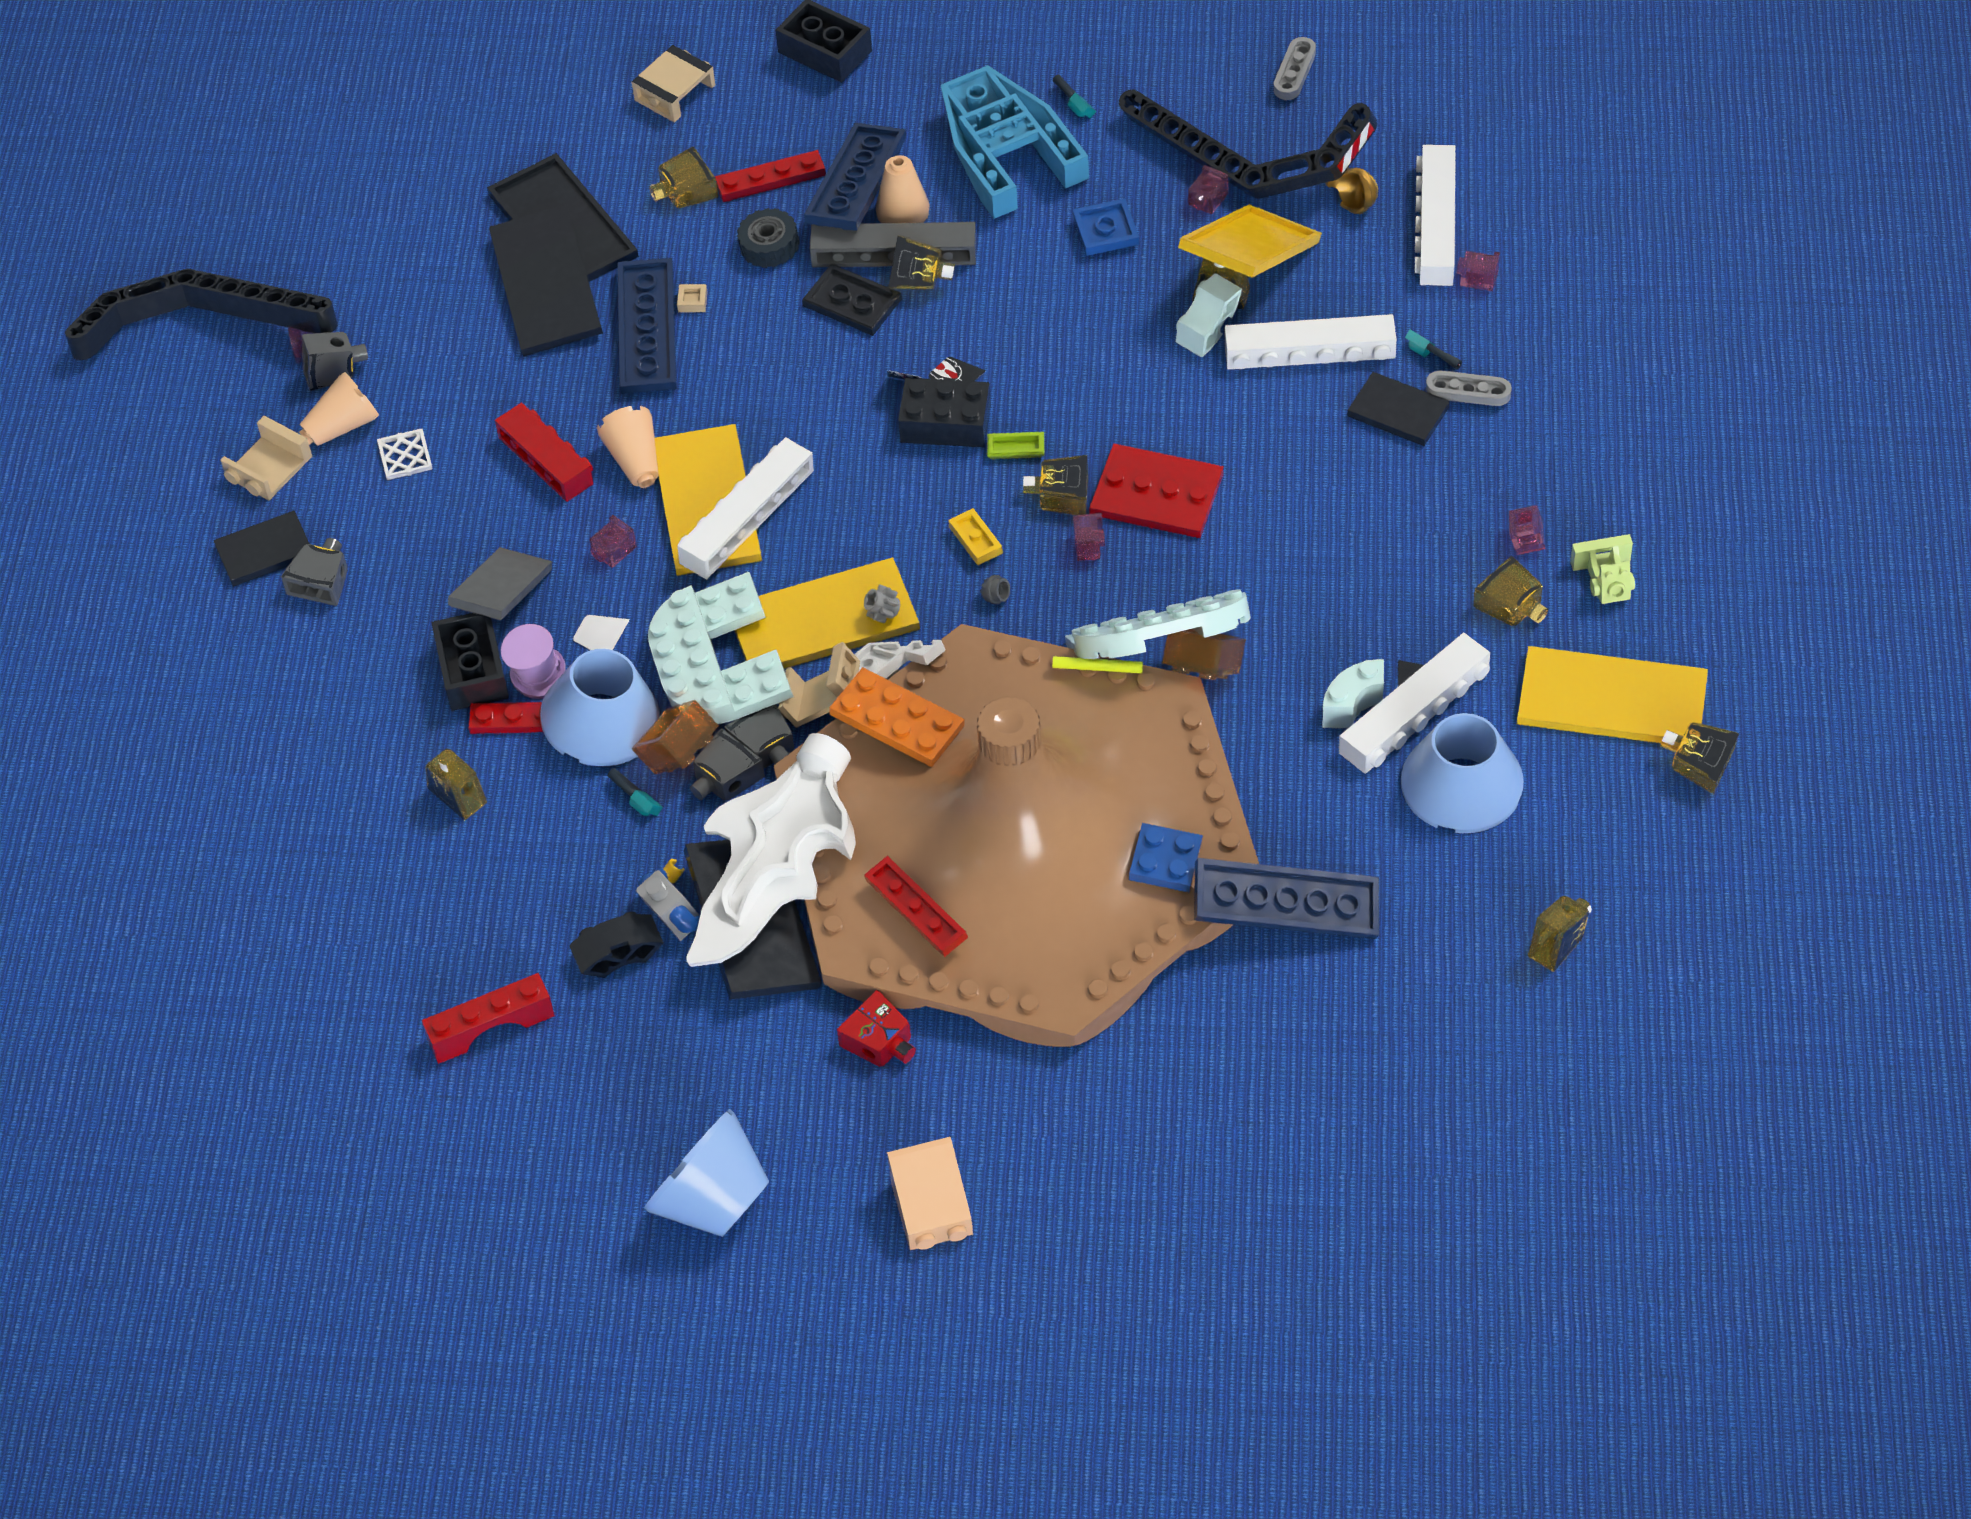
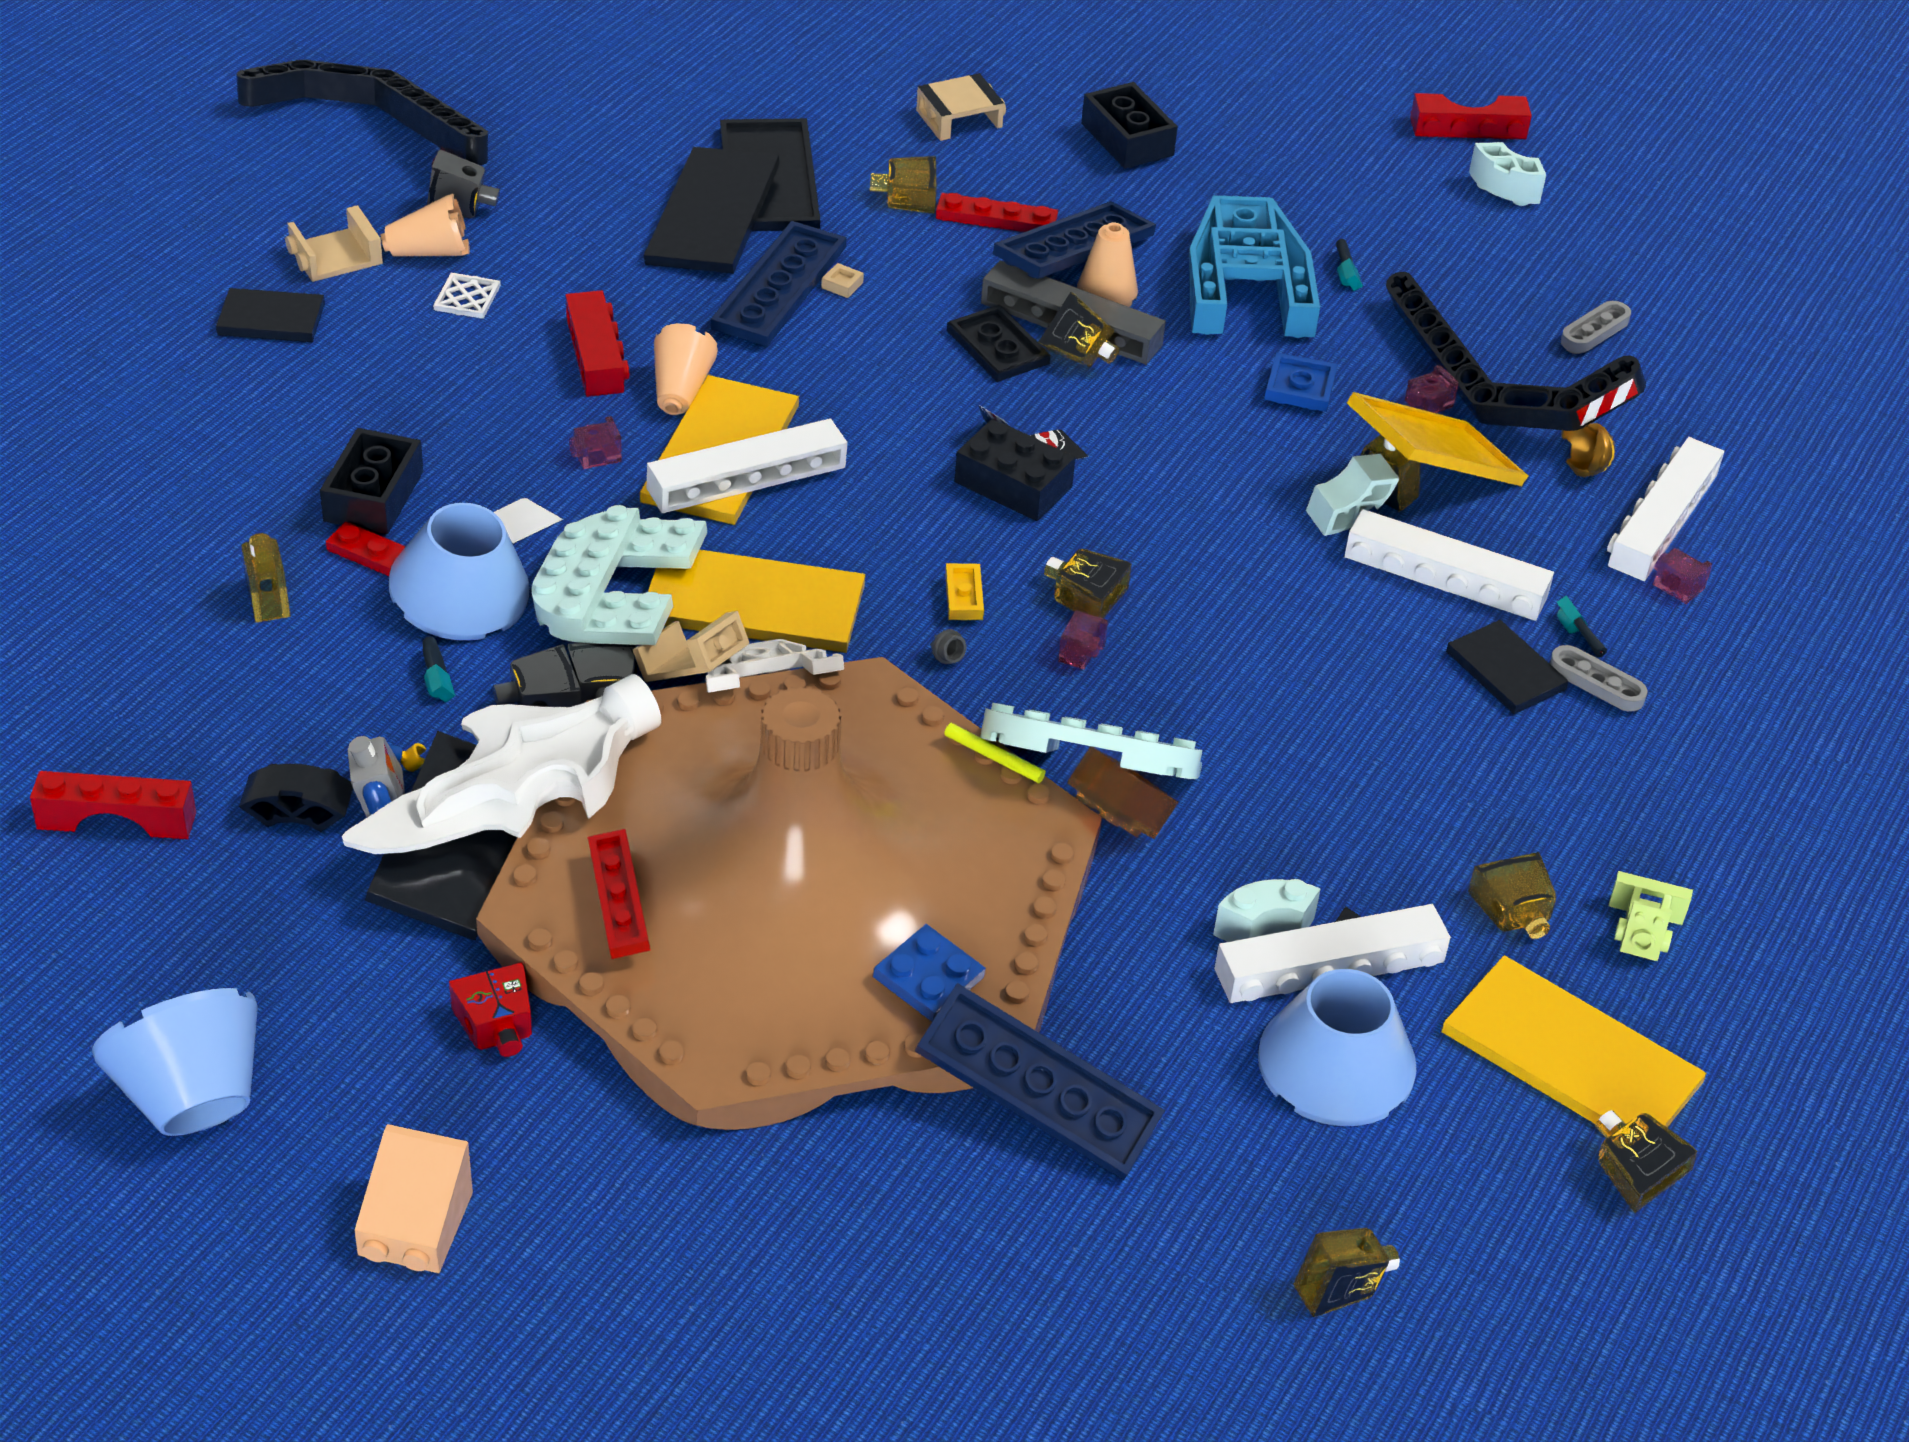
camera: 20 degrees right, 10 degrees down
(317, 573) = (298, 352): dark grey torso -> none
(499, 583) = (453, 427): dark grey tile -> none
(532, 660) = (423, 493): lavender hat -> none
(675, 737) = (511, 629): clear orange piece -> none
(768, 237) = (953, 259): black wheel -> none
(881, 603) = (815, 604): light grey gear -> none
(897, 717) = (728, 695): orange plate -> none
(1015, 445) = (1068, 530): lime tile -> none
(1157, 490) = (1189, 632): red plate -> none
(1526, 529) = (1575, 838): clear pink brick -> none

